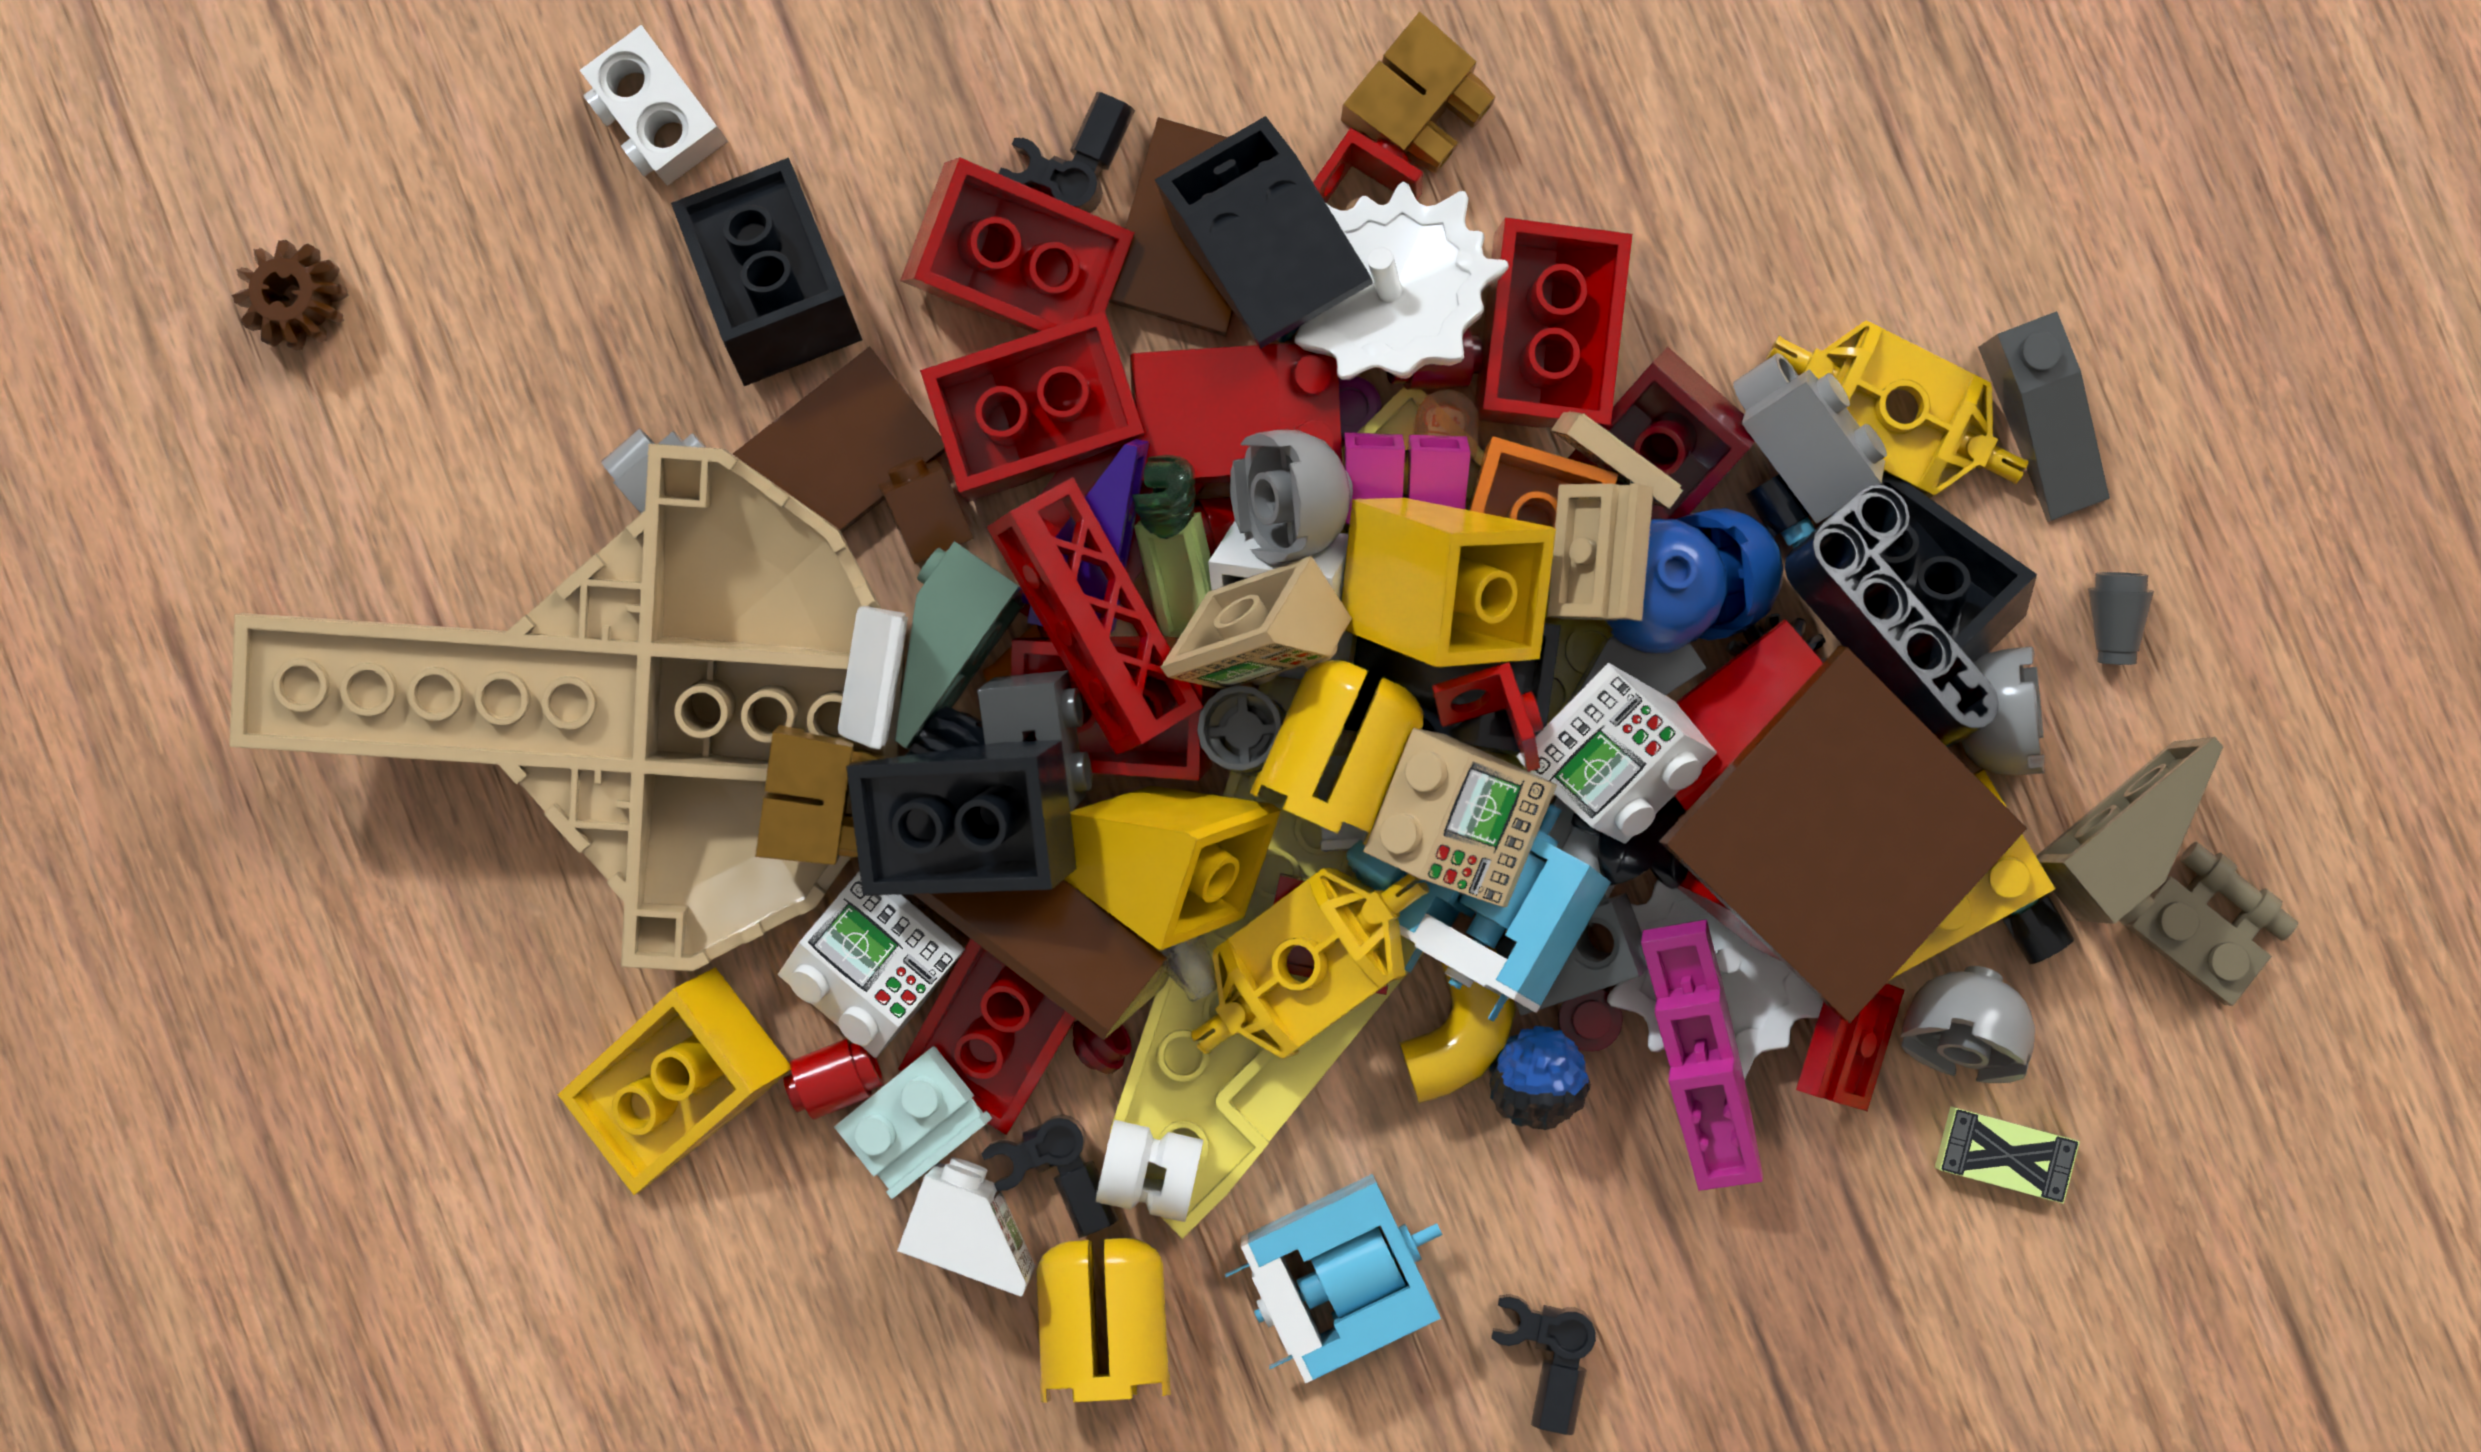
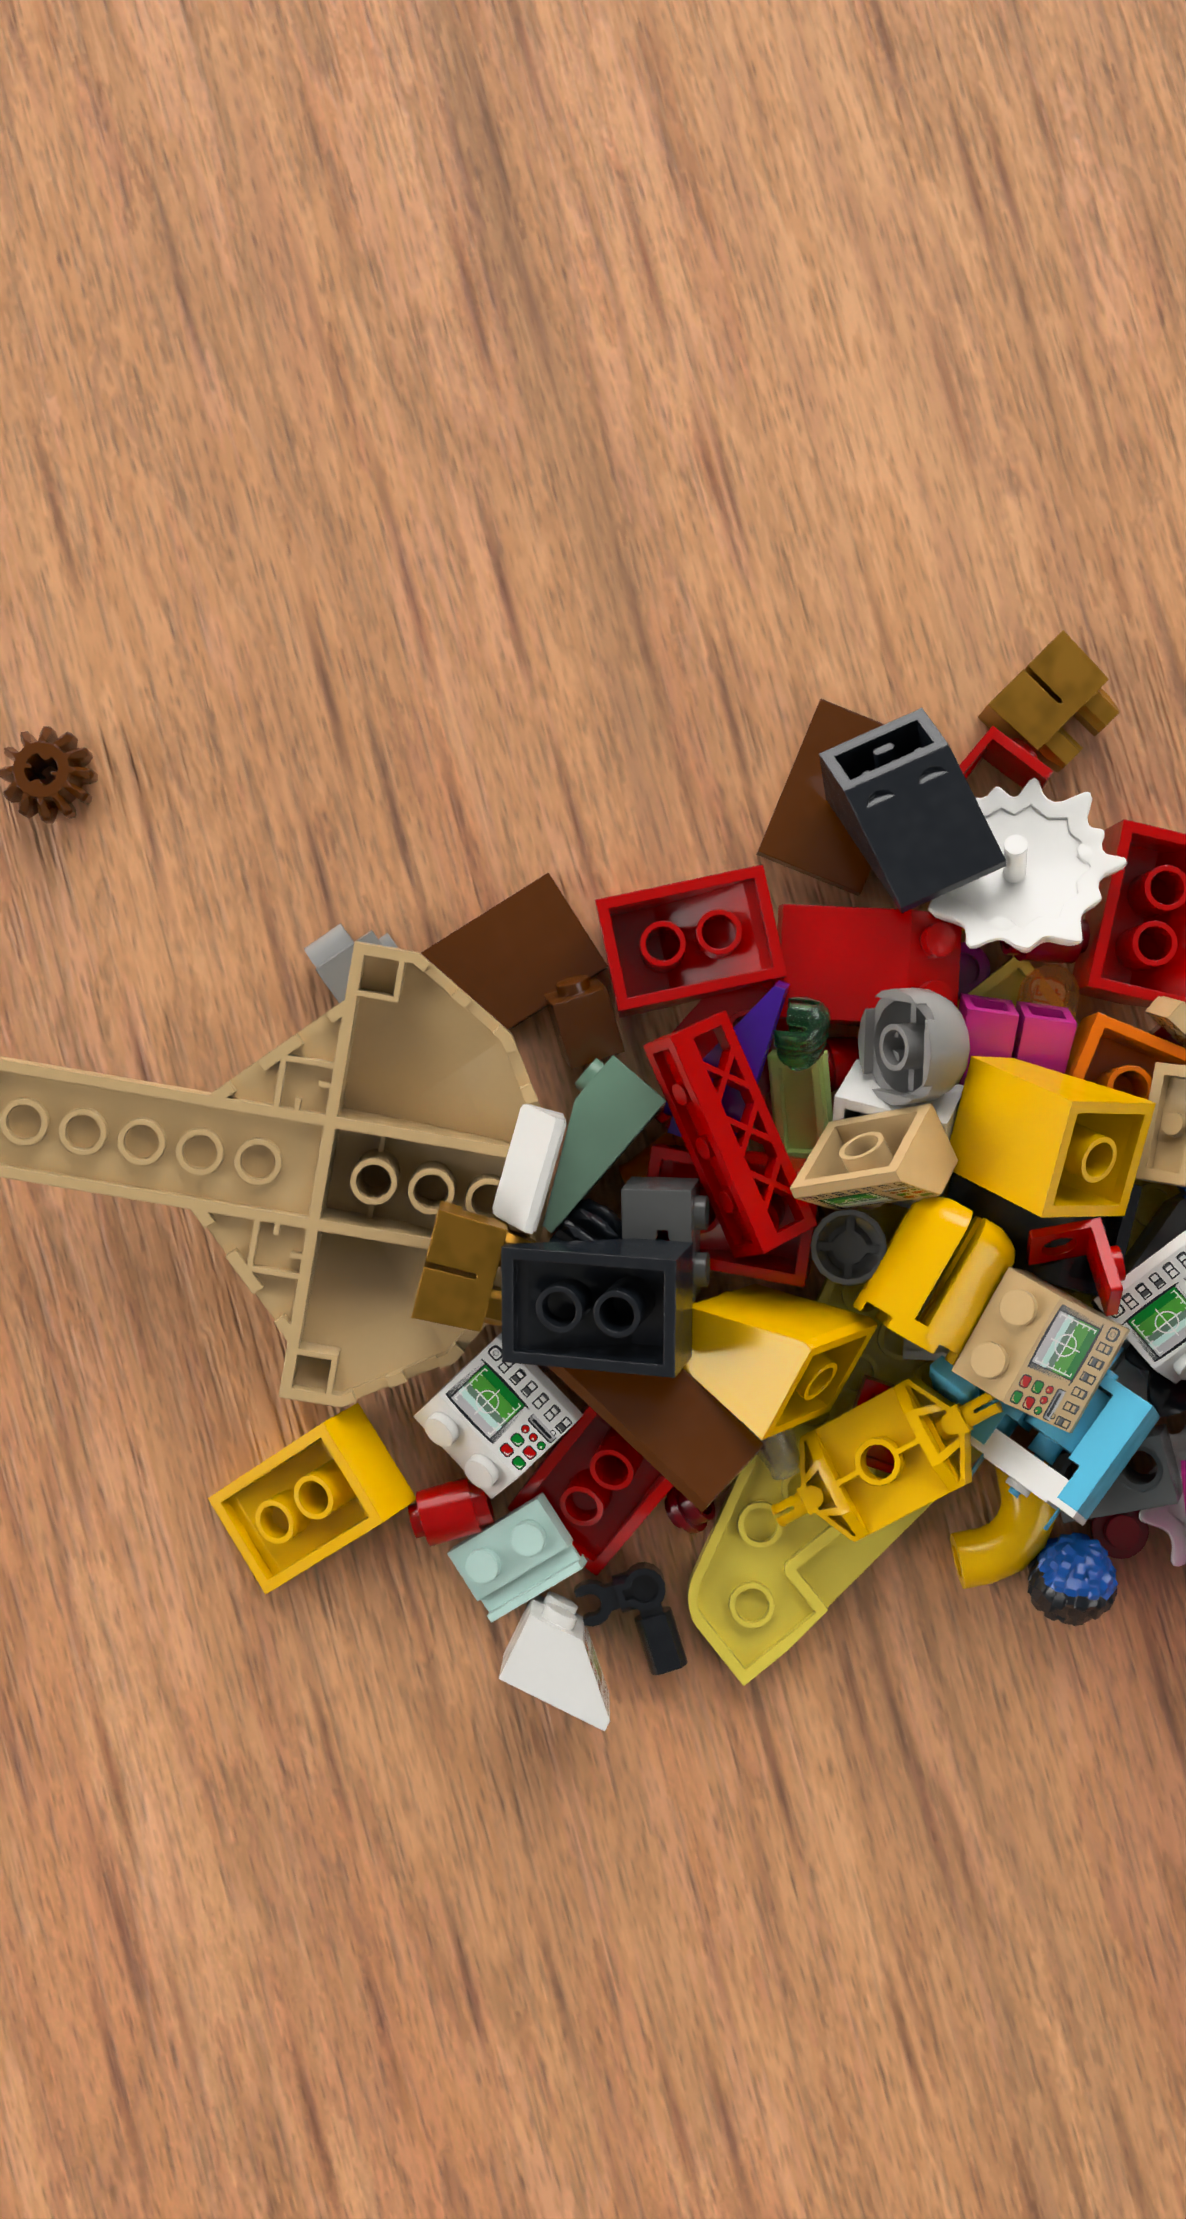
camera: 10 degrees right, 0 degrees up
(659, 102) = (389, 639): white brick -> none
(766, 272) = (466, 798): black slope -> none
(1013, 250) = (684, 802): red slope -> none
(1070, 1320) = (695, 1755): yellow cylinder -> none
(1093, 148) = (743, 748): black bar -> none
(1126, 1164) = (705, 1620): white wheel -> none
(1351, 1271) = (898, 1727): medium azure piece -> none
(1571, 1337) = (1074, 1811): black bar -> none

